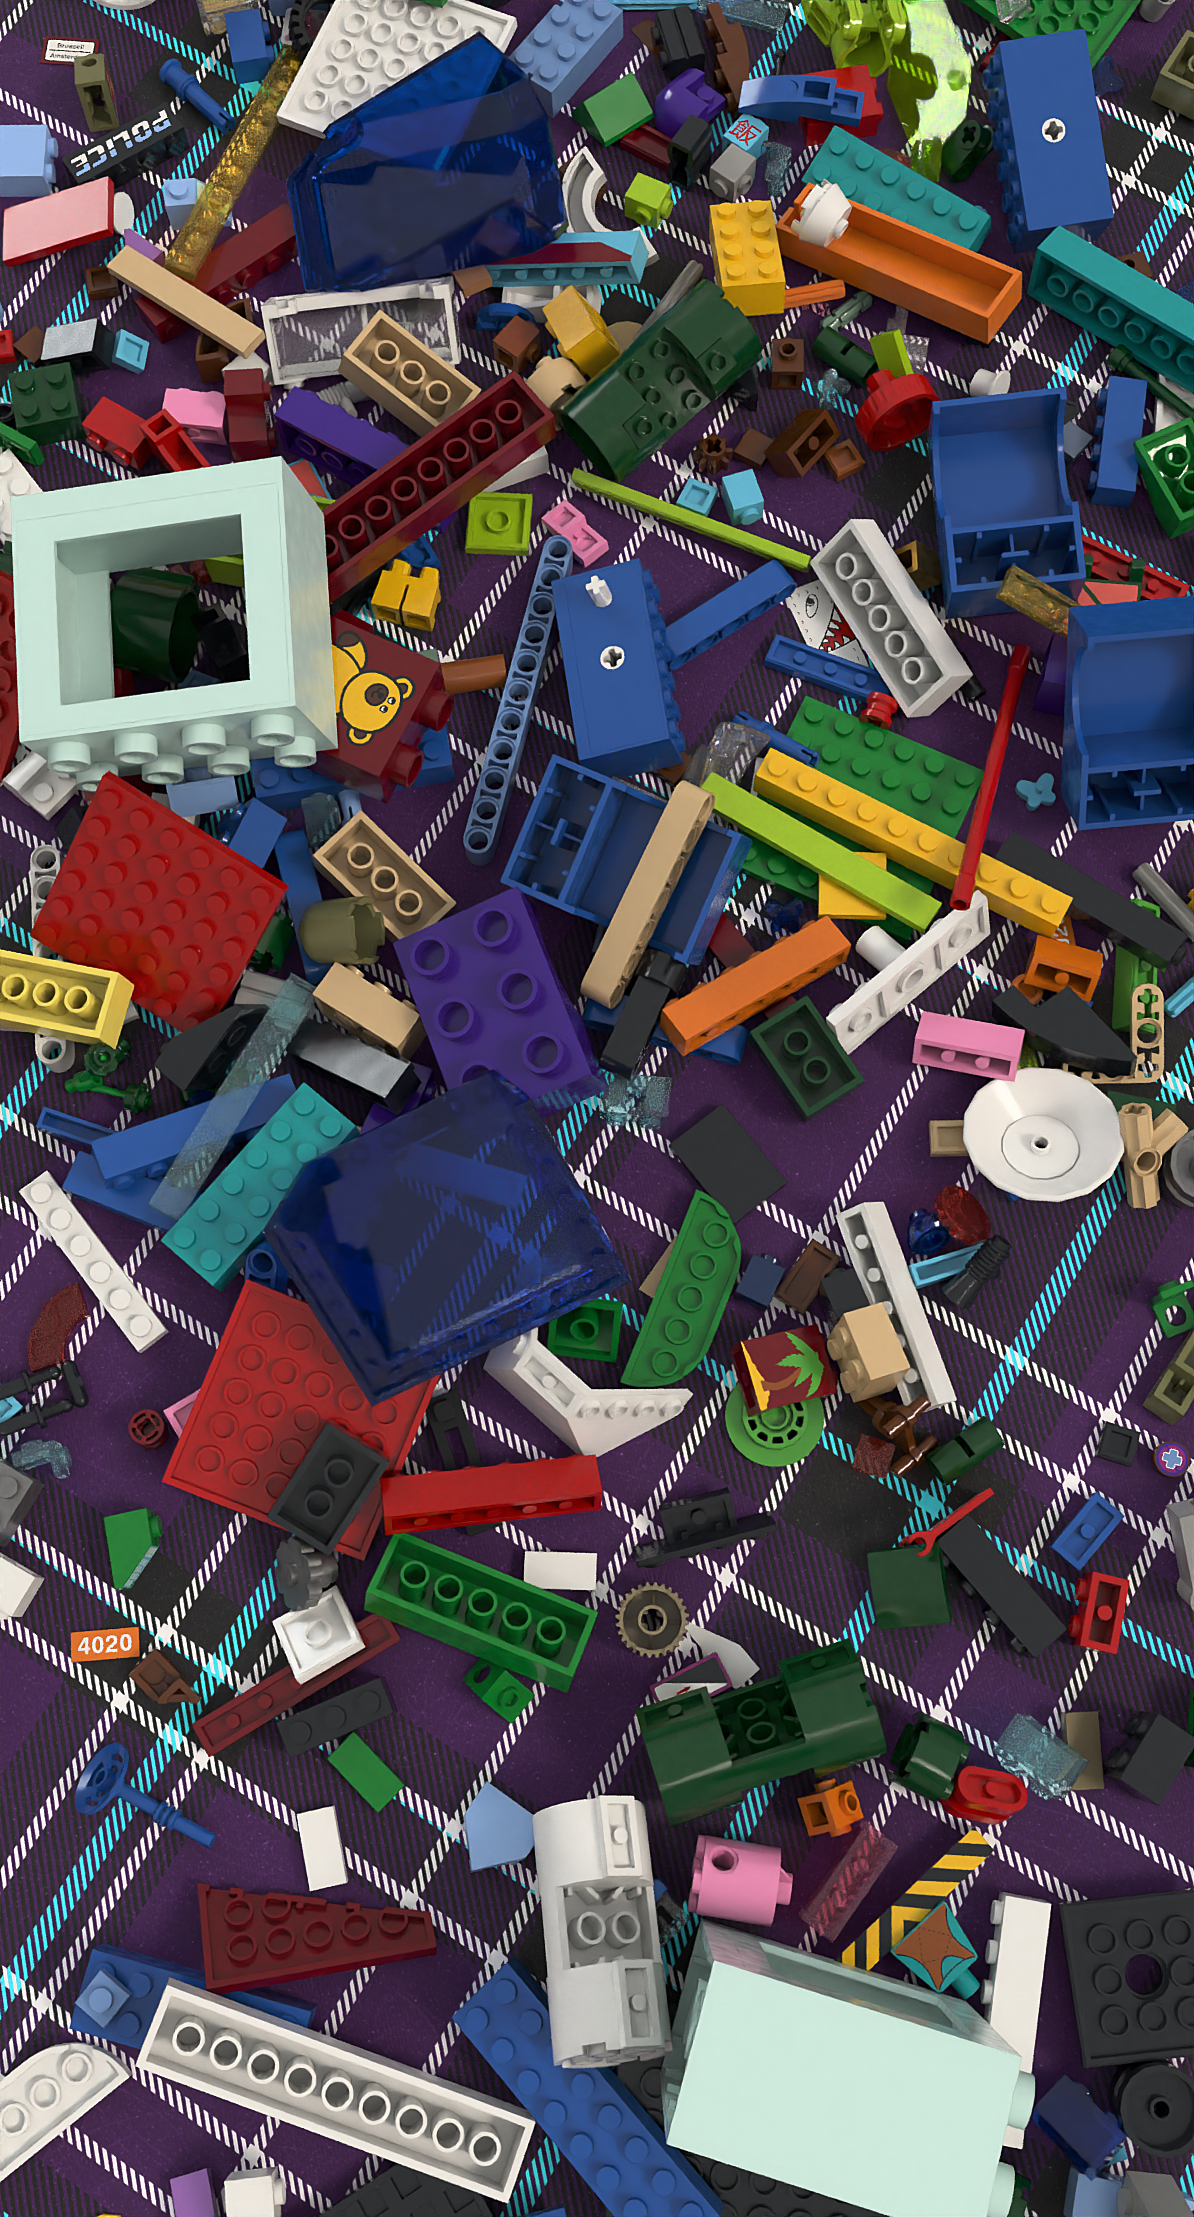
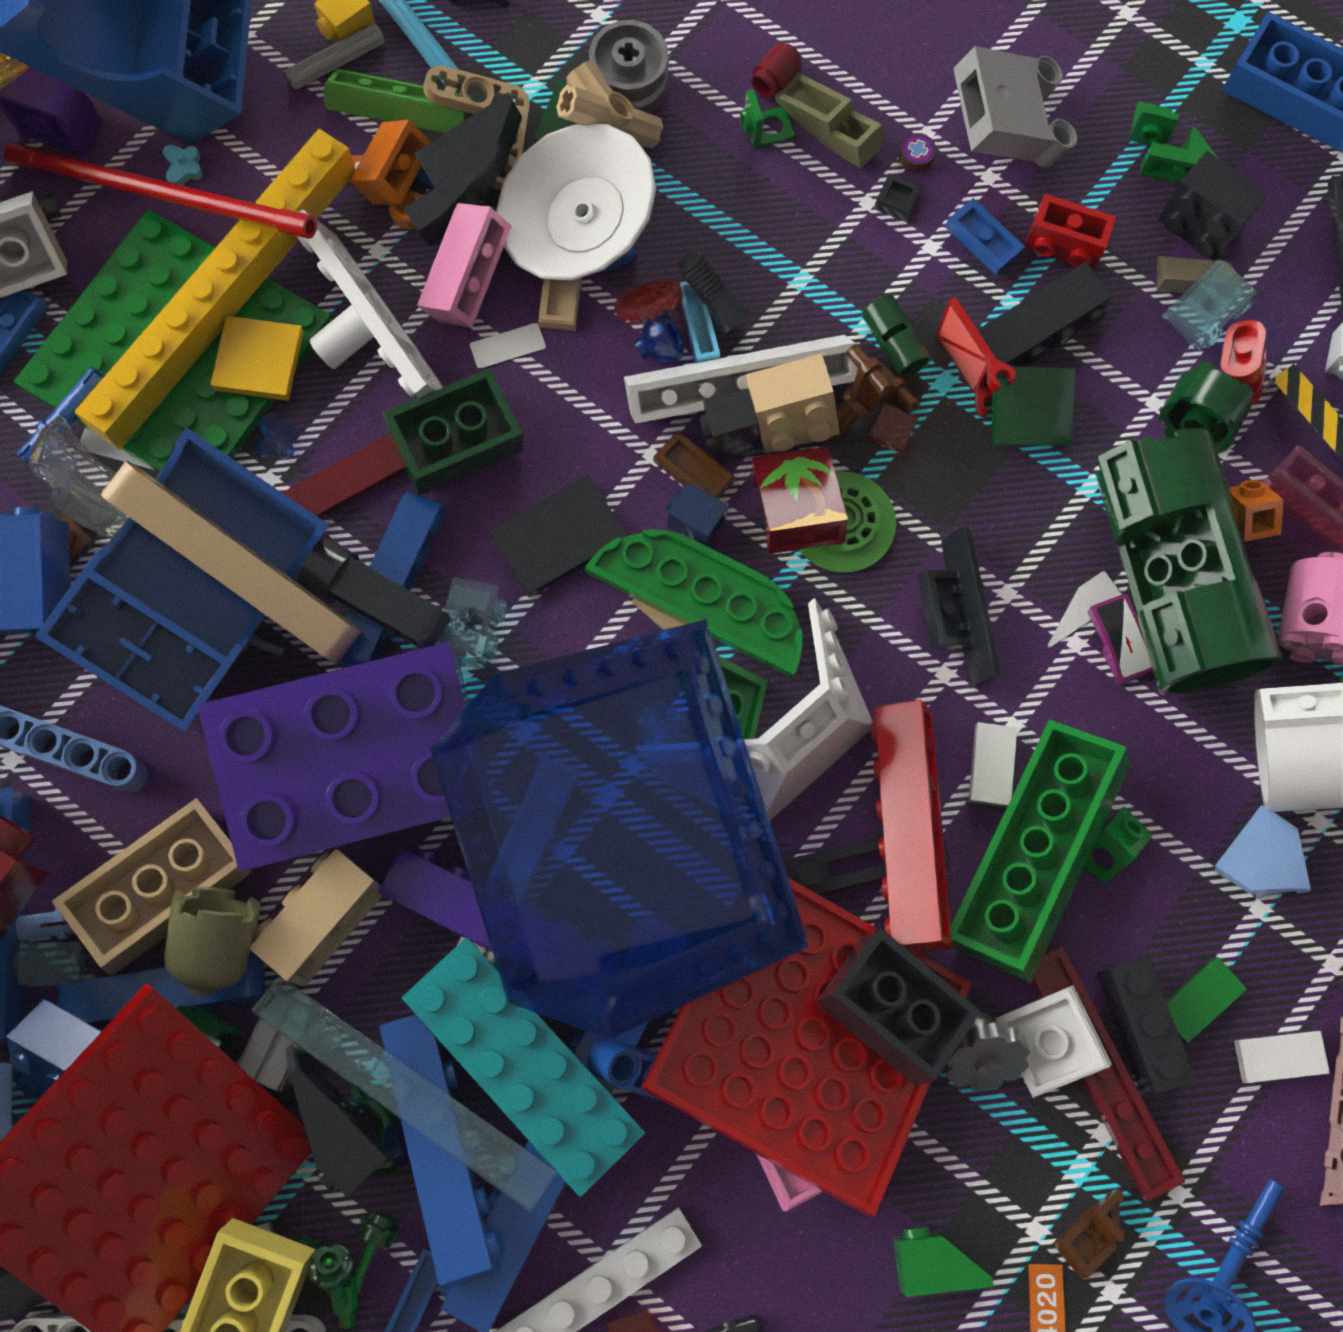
camera: 90 degrees left, 0 degrees up
(152, 1434) = (795, 1236): dark red wheel -> none
(354, 1065) = (382, 941): black brick -> none
(667, 1606) = (1037, 679): dark tan brick -> none
(754, 985) = (359, 474): orange brick -> none
(822, 854) = (220, 374): lime tile -> none
(879, 710) = (49, 303): red wheel -> none
(905, 1098) = (507, 345): none -> white sticker
(1098, 905) = (334, 109): black brick -> none

